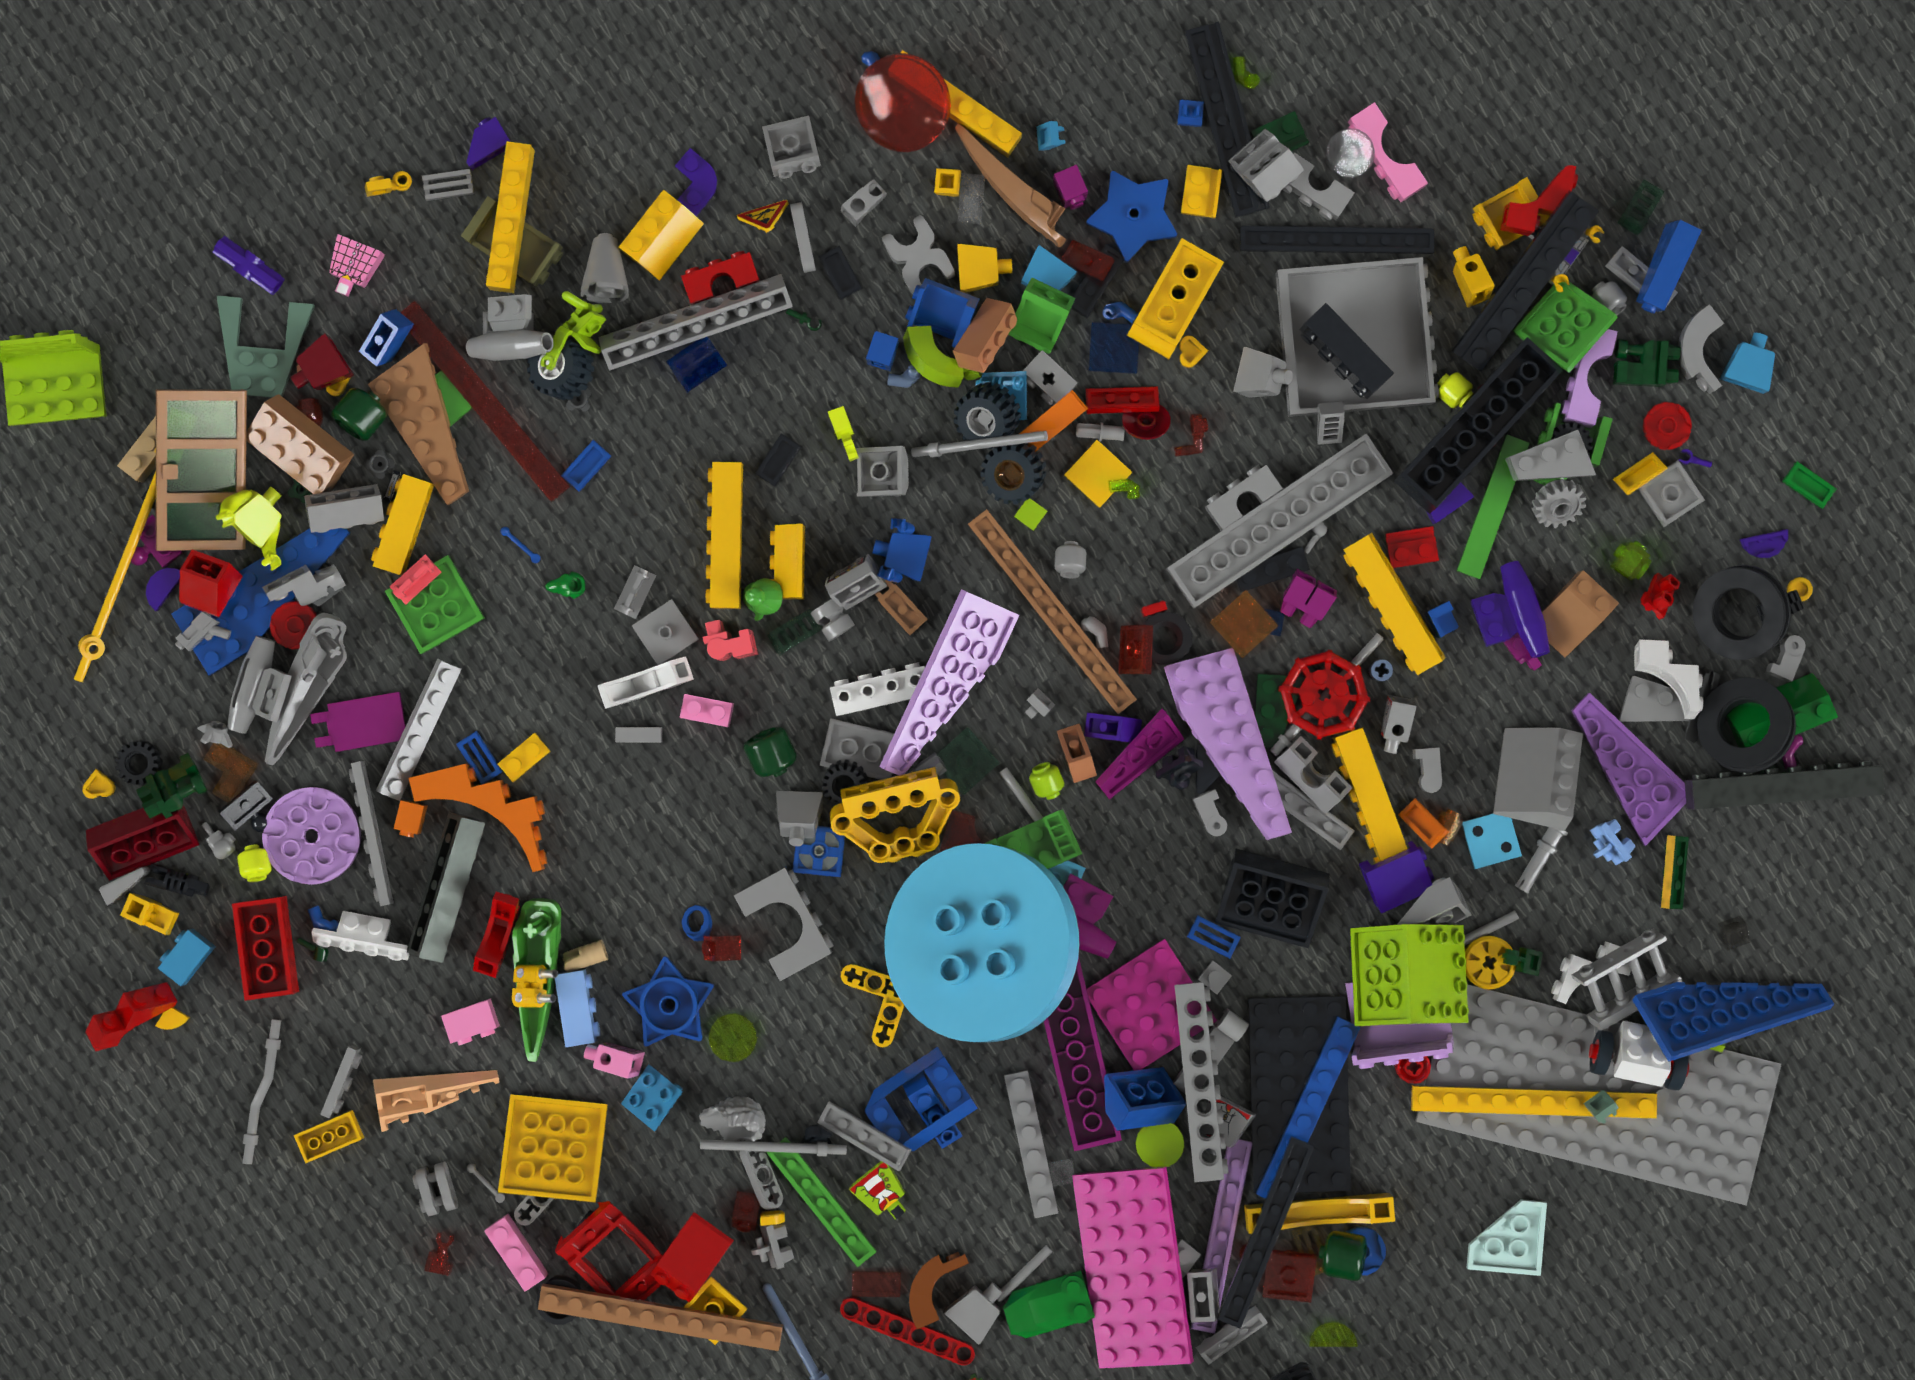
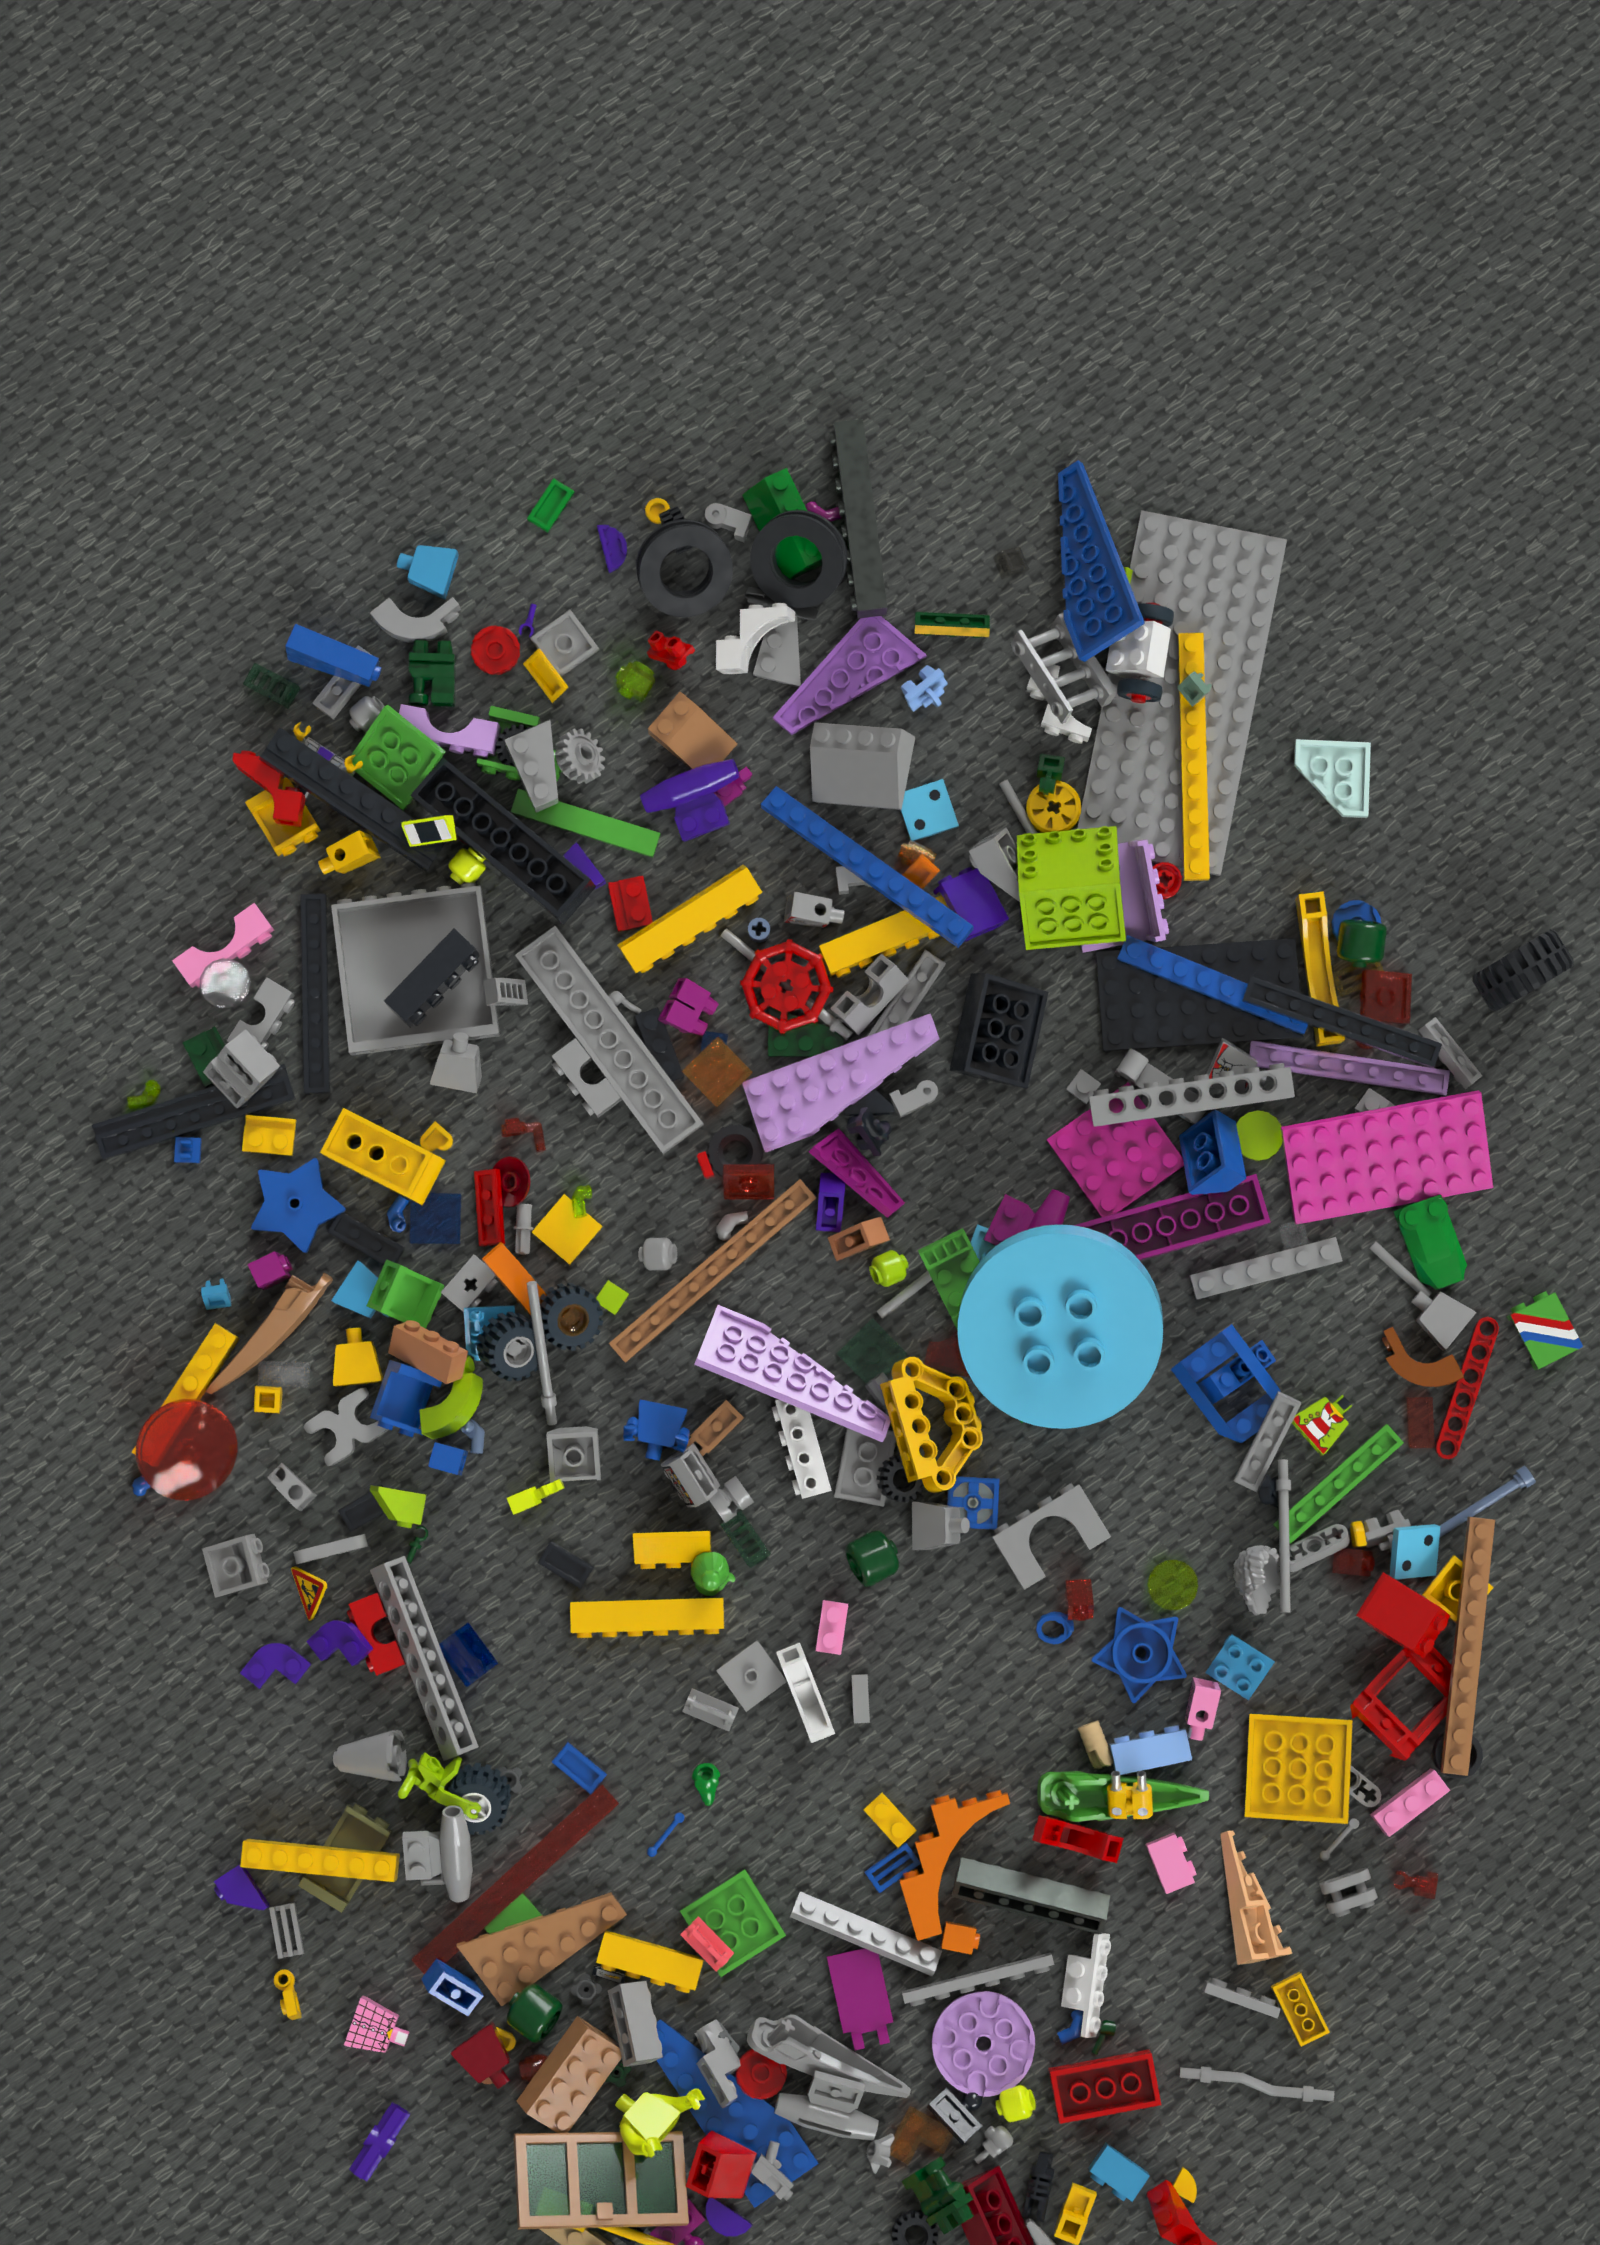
camera: 95 degrees left, 5 degrees down
(255, 369) = (490, 2124): sand green wing -> none
(661, 235) = (333, 1699): yellow slope -> none
(719, 244) = (343, 1636): none -> dark purple plate
(722, 646) = (764, 1614): coral hips -> none
(752, 1271) = (1414, 1551): none -> medium azure tile
(841, 304) = (400, 1505): none -> lime slope
(889, 1000) = (1124, 1422): yellow beam -> none
(1039, 703) = (809, 1279): light grey tile -> none
(1087, 260) = (345, 1249): clear red plate -> none
(1195, 927) = (1033, 1109): blue tile -> none
(1203, 1295) = (1410, 1083): light grey brick -> none
(1332, 1335) = (1444, 950): clear neon green tile -> none
(1438, 778) = (867, 867): none -> blue plate
(1442, 619) = (703, 869): blue panel -> none
(1491, 354) = (429, 830): none -> slope
(1546, 847) = (933, 754): light grey pin -> none

